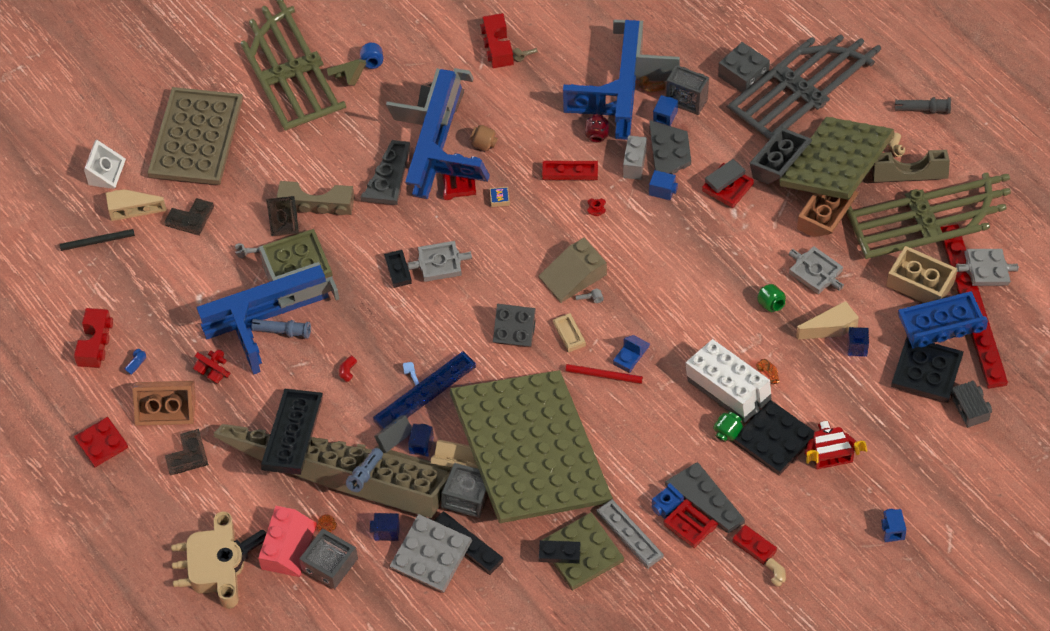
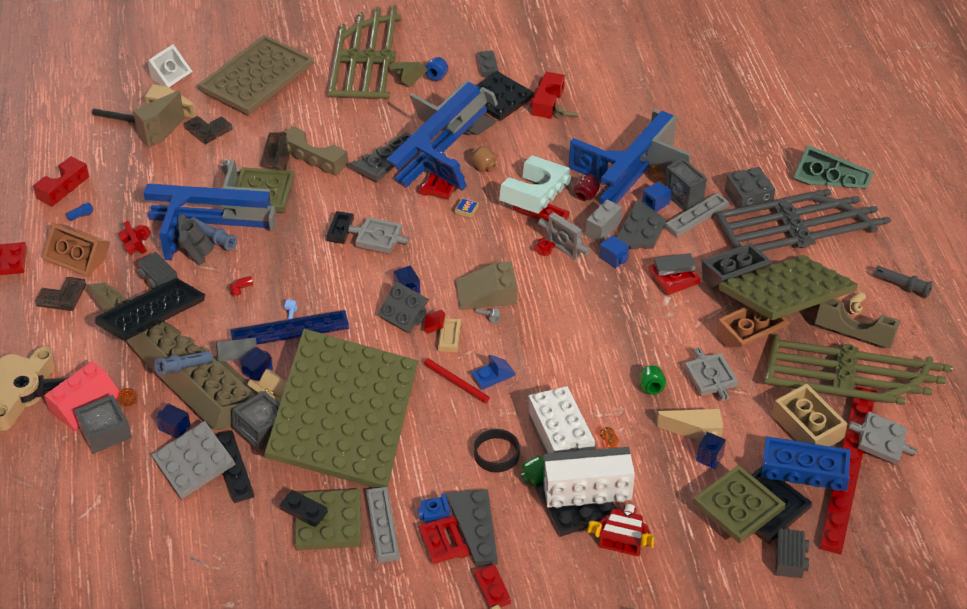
camera: 25 degrees right, 10 degrees down
(140, 231) = (159, 118): none -> dark tan slope
(261, 391) = (155, 270): none -> dark grey brick
(277, 342) = (194, 239): none -> dark grey plate
(414, 27) = (487, 63): none -> dark grey plate
(447, 54) = (508, 94): none -> black plate
(498, 294) = (408, 278): none -> clear blue brick
(549, 326) = (434, 321): none -> red tile
(555, 162) = (535, 197): none -> light aqua arch
(613, 189) = (564, 235): none -> light grey plate
(681, 406) = (496, 467): none -> black tyre
(709, 114) = (696, 215): none -> light grey tile
(781, 414) = (588, 477): none -> white piece
(799, 17) = (825, 169): none -> sand green wedge
(910, 380) = (739, 503): none -> olive plate

